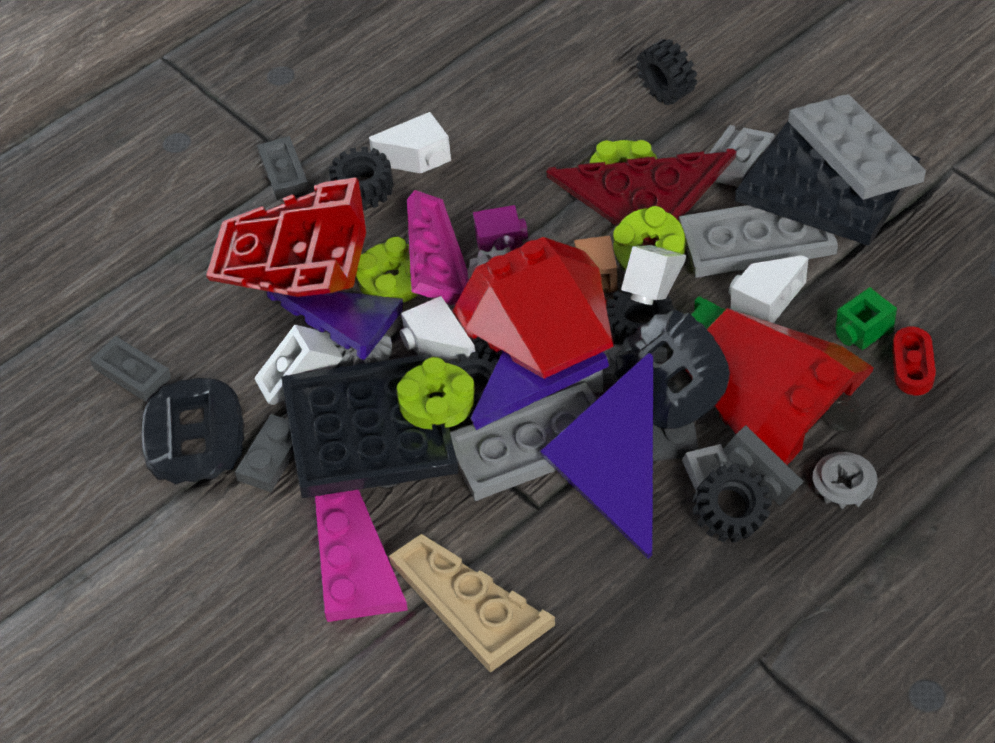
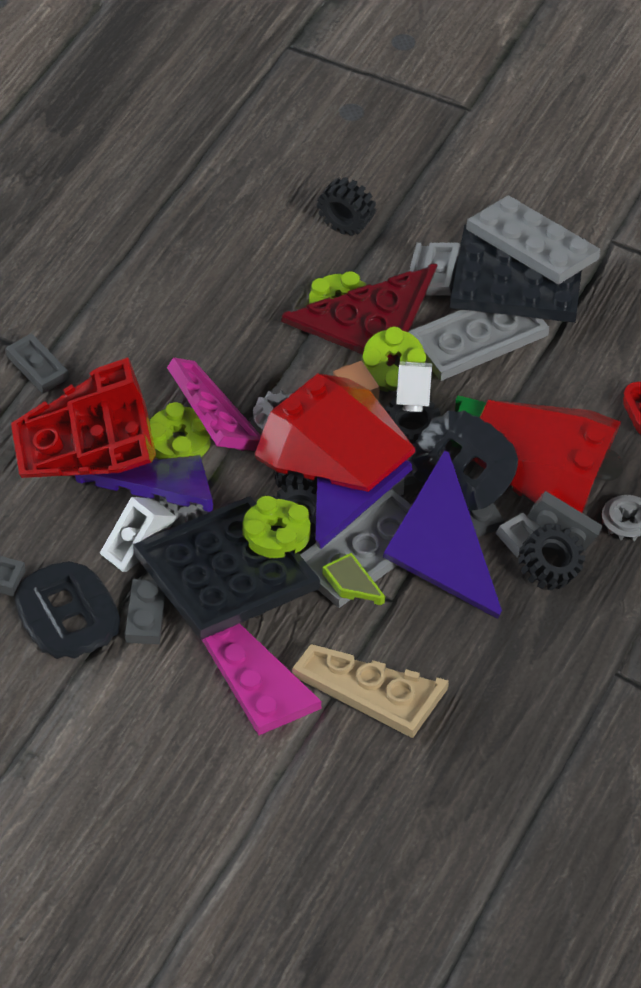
camera: 25 degrees left, 0 degrees up
(365, 164) = (113, 344): black tyre -> none
(414, 145) = (147, 318): white slope -> none
(435, 331) = (246, 475): white slope -> none
(494, 473) = (352, 580): none -> tile
(499, 228) = (258, 377): magenta brick -> none
(768, 287) = (506, 375): white slope -> none
(865, 319) = (593, 391): green brick -> none

